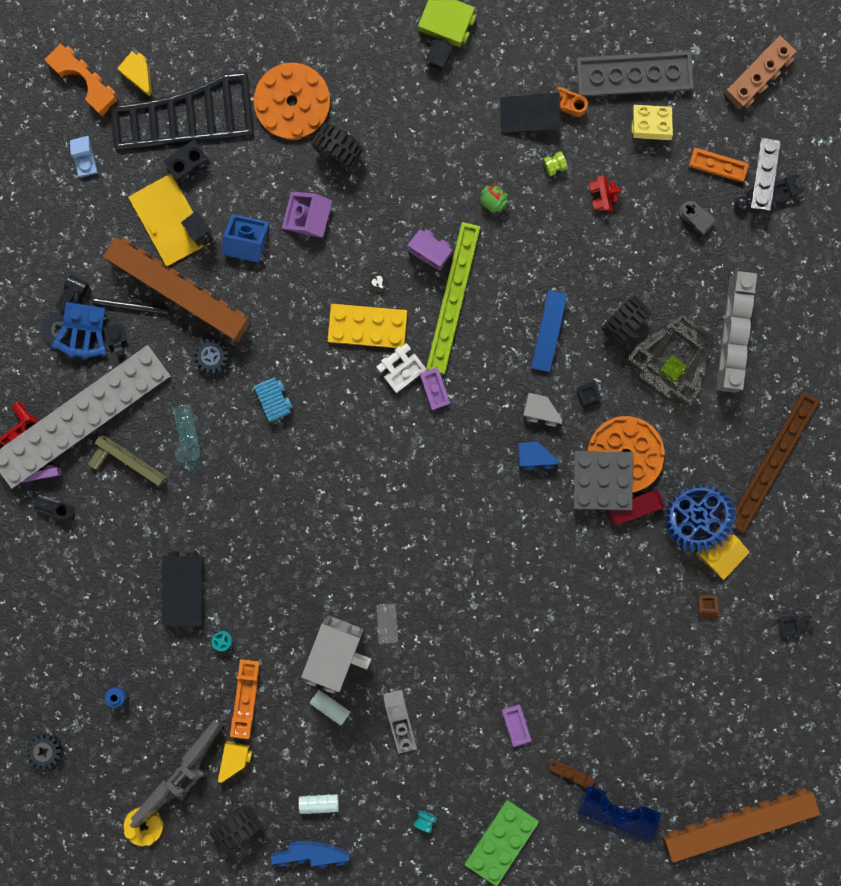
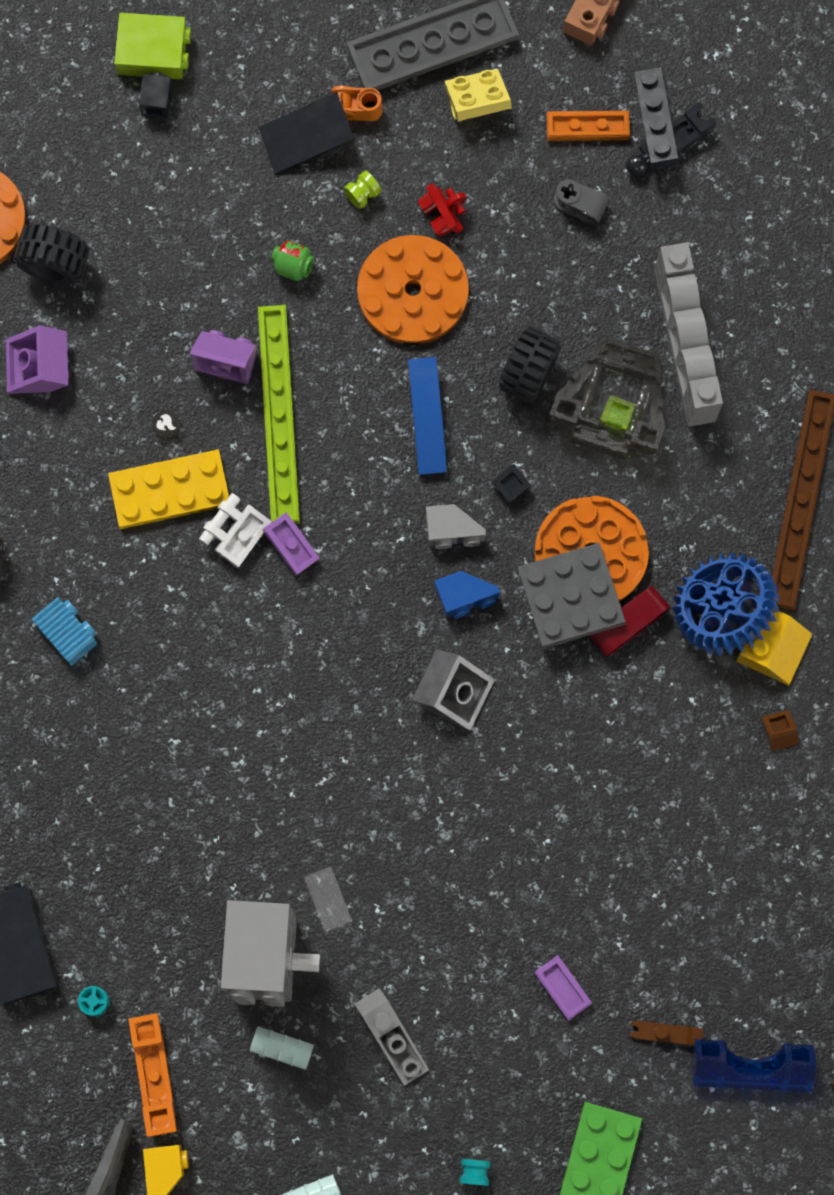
camera: 20 degrees left, 10 degrees down
(508, 515) = (453, 689): none -> flat silver slope
(571, 222) = (408, 317): none -> orange plate

